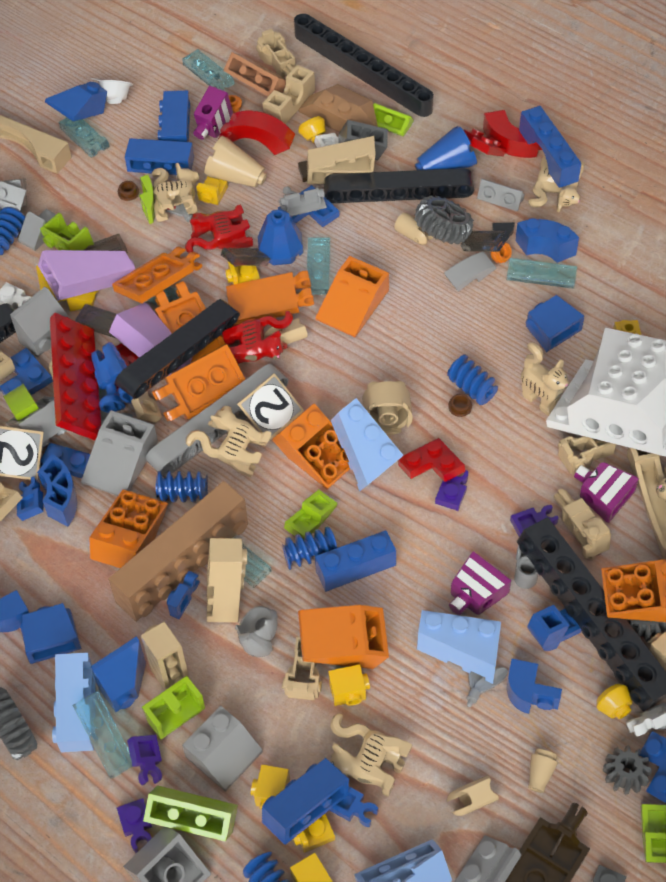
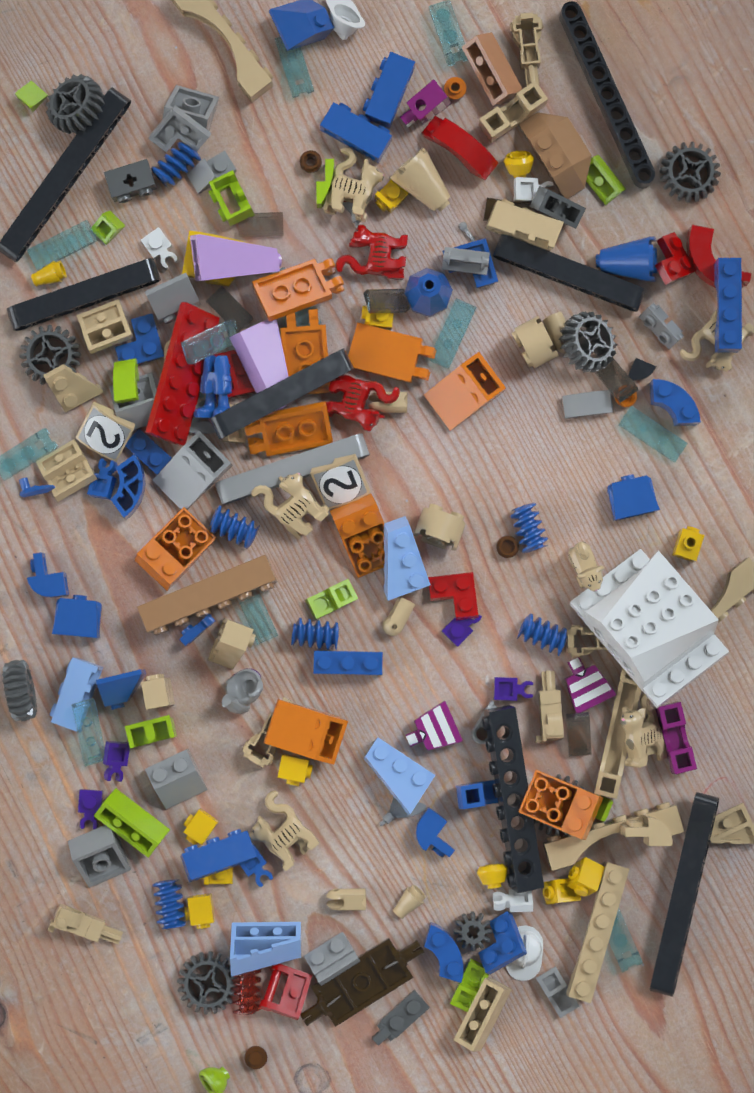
camera: 20 degrees right, 30 degrees up
(89, 340) = (208, 342): none -> clear light blue plate
(385, 501) = (398, 617): none -> tan piece
(397, 237) = (535, 342): none -> tan brick
(460, 87) = (694, 180): none -> dark grey gear
(537, 459) = (543, 634): none -> blue piece
(612, 804) = (446, 951): none -> blue brick
(623, 531) = (578, 734): none -> clear smoke tile

